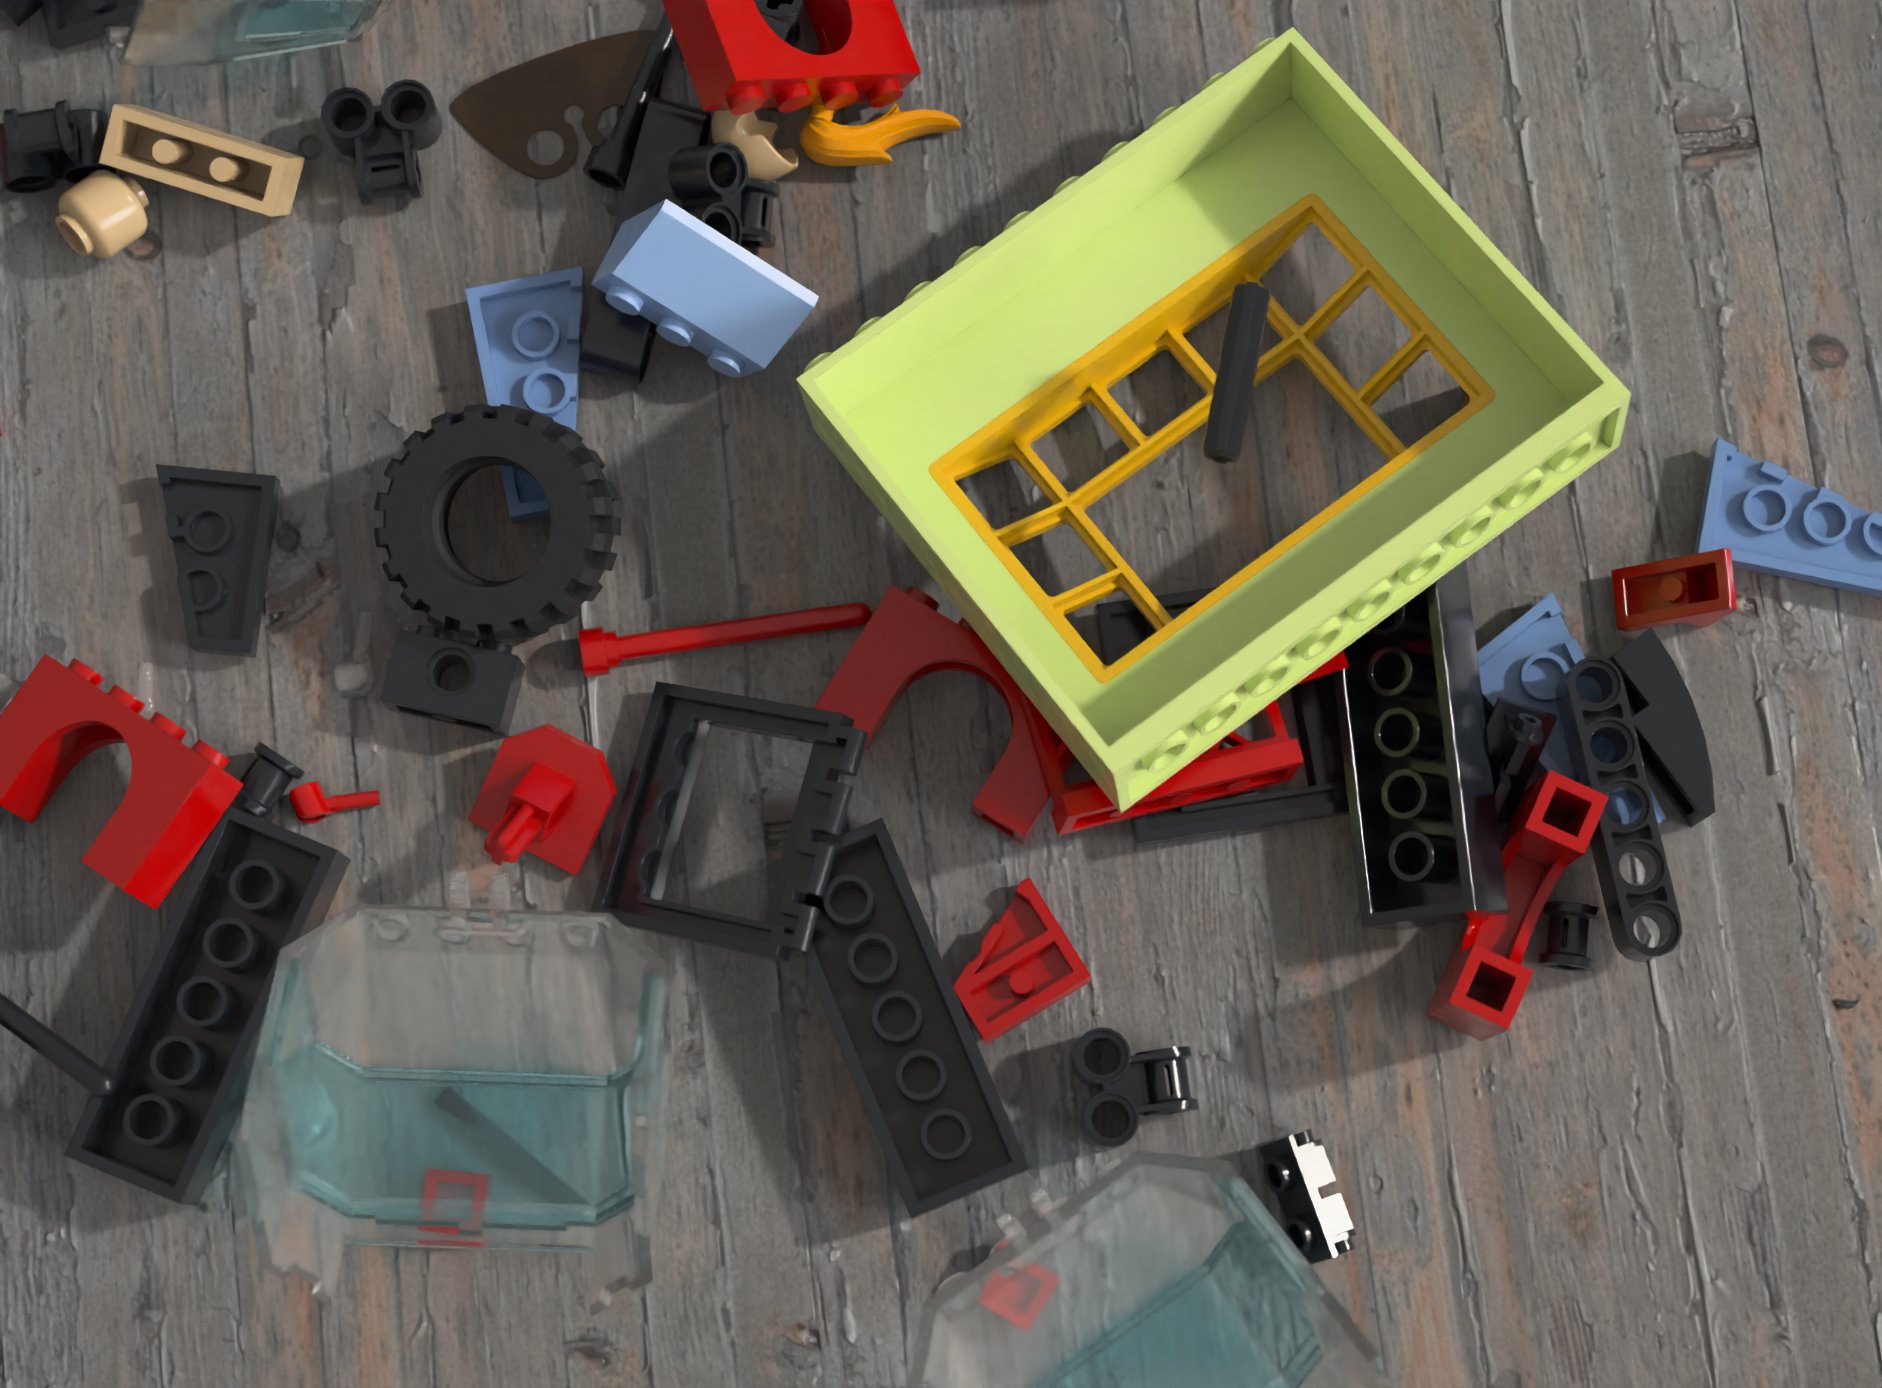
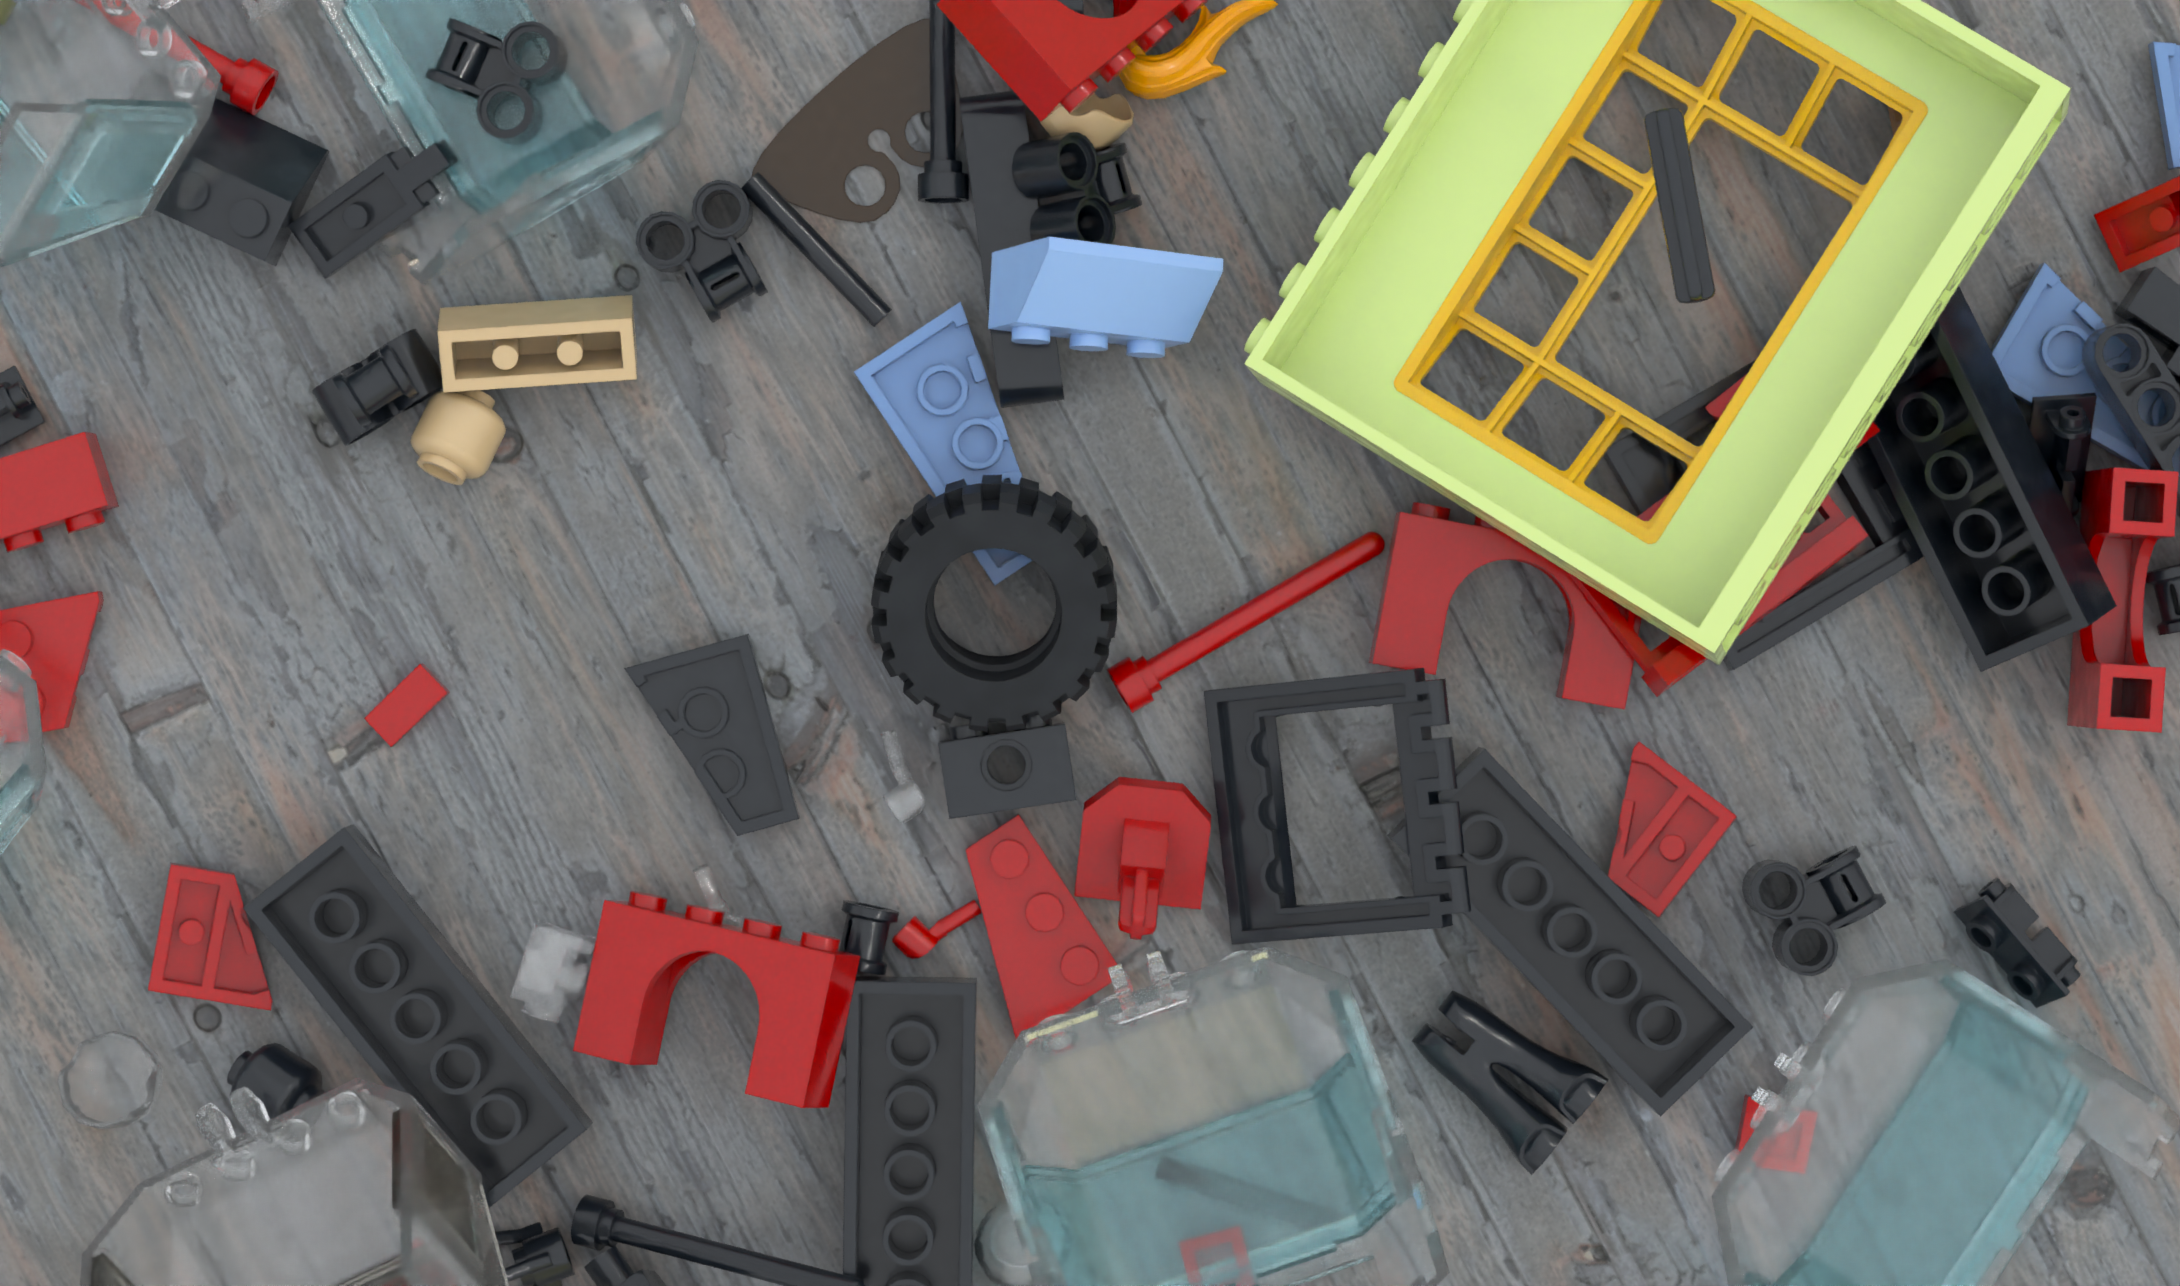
camera: 20 degrees left, 10 degrees up
(420, 825) = (1037, 931): none -> red wing
(479, 181) = (816, 249): none -> black bar
(786, 1185) = (1521, 1123): none -> black piece

